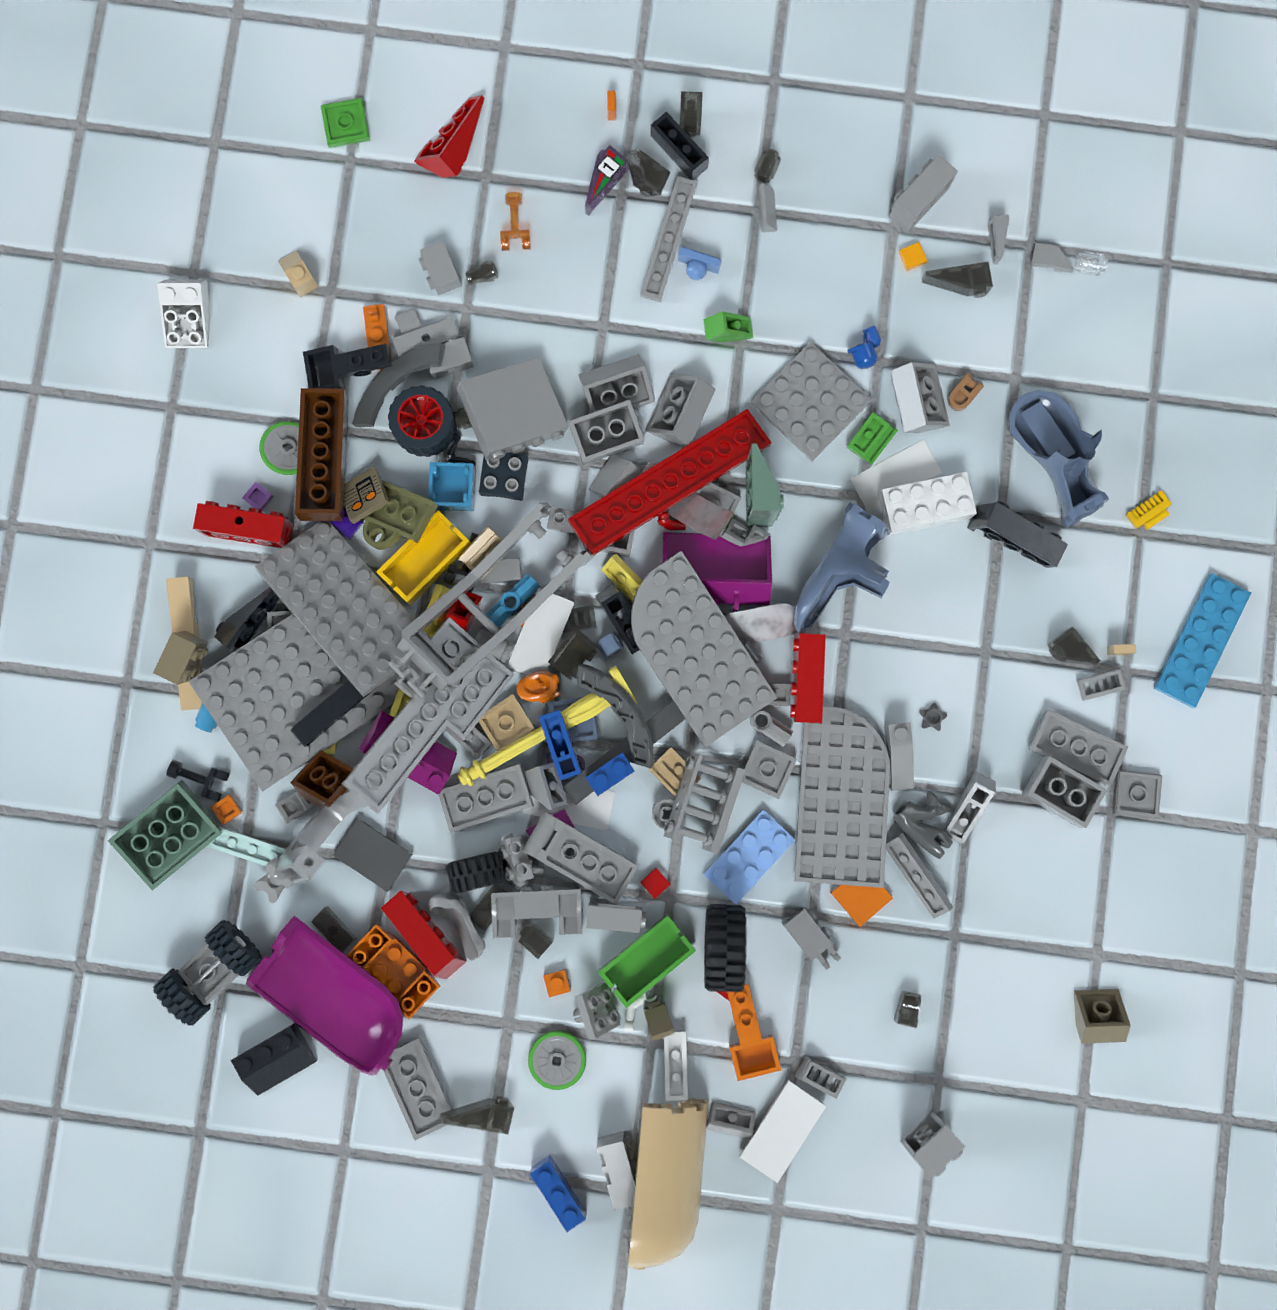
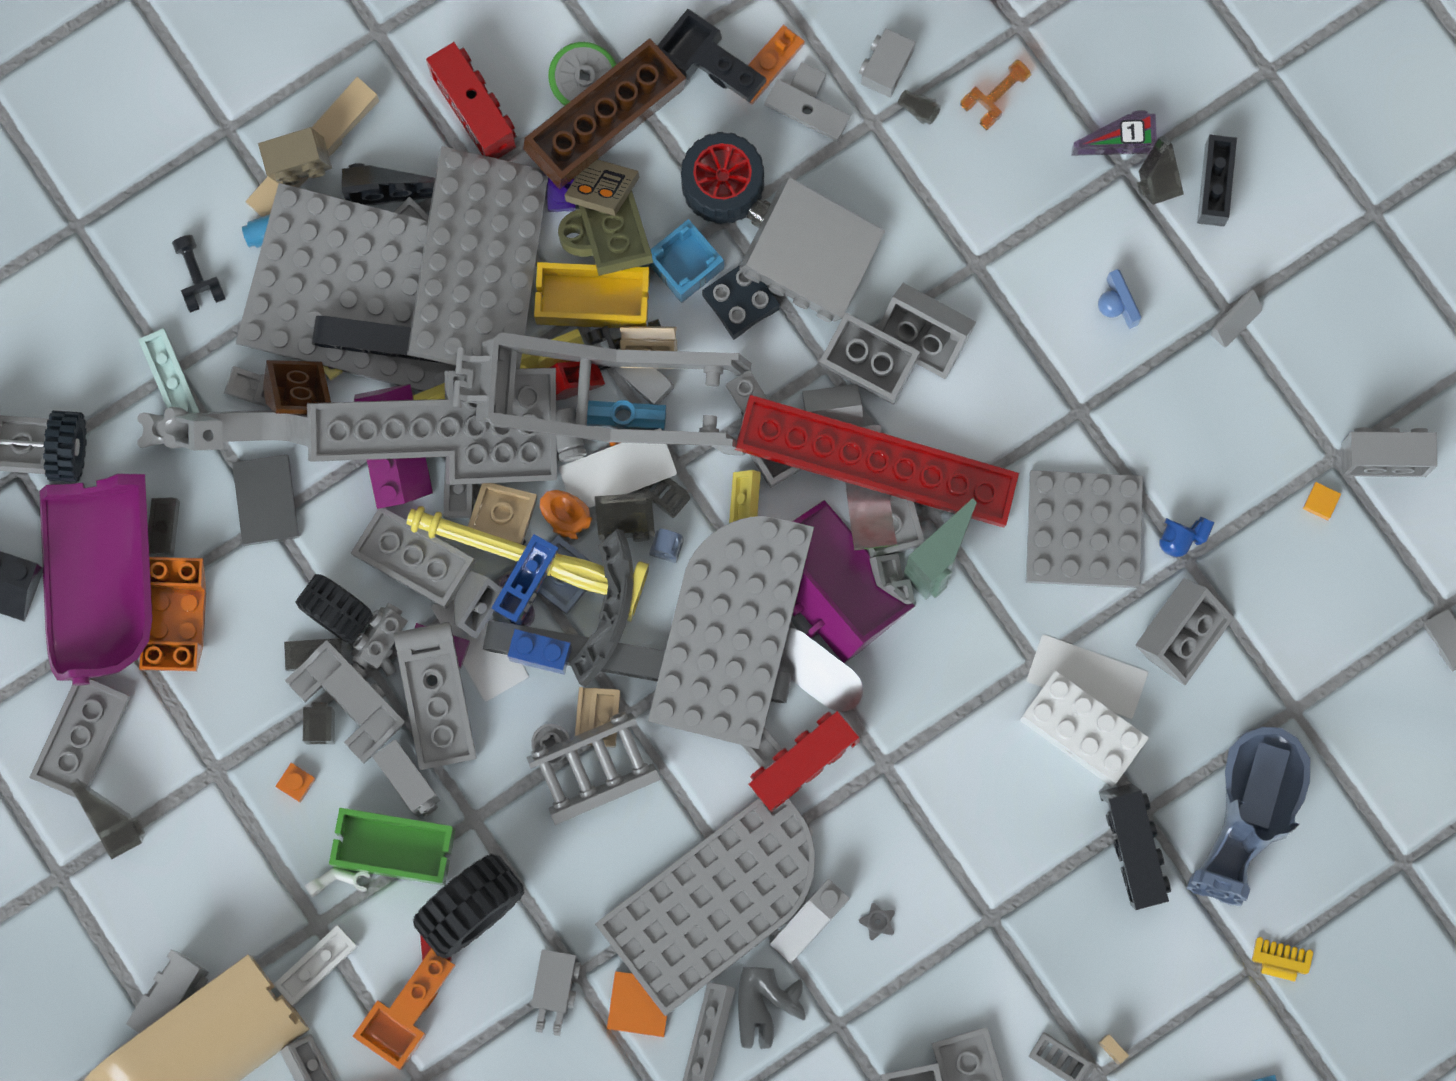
camera: 50 degrees right, 5 degrees down
(166, 835) = (116, 291): sand green slope -> none
(226, 809) = (188, 326): orange tile -> none
(257, 496) = (511, 91): medium lavender tile -> none
(391, 377) = (737, 110): dark grey tile -> none
(422, 935) = (230, 614): red wedge -> none
(451, 453) = (717, 232): black piece -> none
(454, 908) = (281, 620): light grey hair -> none
(455, 358) = (809, 151): light grey slope -> none
(557, 1075) = (211, 831): light grey wheel -> none
(558, 1193) = (96, 958): blue brick -> none
(596, 1011) = (297, 839): light grey plate -> none
(611, 104) = (1198, 81): orange tile -> none
(619, 615) = (705, 520): black slope -> none
(655, 883) = (474, 792): red tile -> none
(658, 1020) = (345, 907): dark tan slope -> none
(663, 520) = (836, 498): red arm -> none
(668, 239) = (1117, 251): light grey plate -> none
(680, 409) = (959, 410): light grey slope -> none
(691, 112) = (1258, 163): clear smoke slope -> none
(727, 327) = (1082, 384): bright green slope -> none
(749, 856) = (580, 861): light blue plate -> none
(767, 165) = (1279, 280): clear smoke brick -> none
(768, 769) = (681, 803): light grey plate -> none
(773, 728) = (725, 773): light grey piece -> none
(844, 566) = (941, 698): sand blue animal -> none
(872, 438) = (1100, 619): bright green plate -> none
(960, 397) = (1220, 670): medium nougat plate -> none
(965, 280) = (1343, 570): clear smoke slope -> none
(970, 807) = (820, 1034): light grey slope -> none
(997, 234) = (1424, 561): light grey slope -> none
(1072, 648) = (1069, 998): clear smoke slope -> none

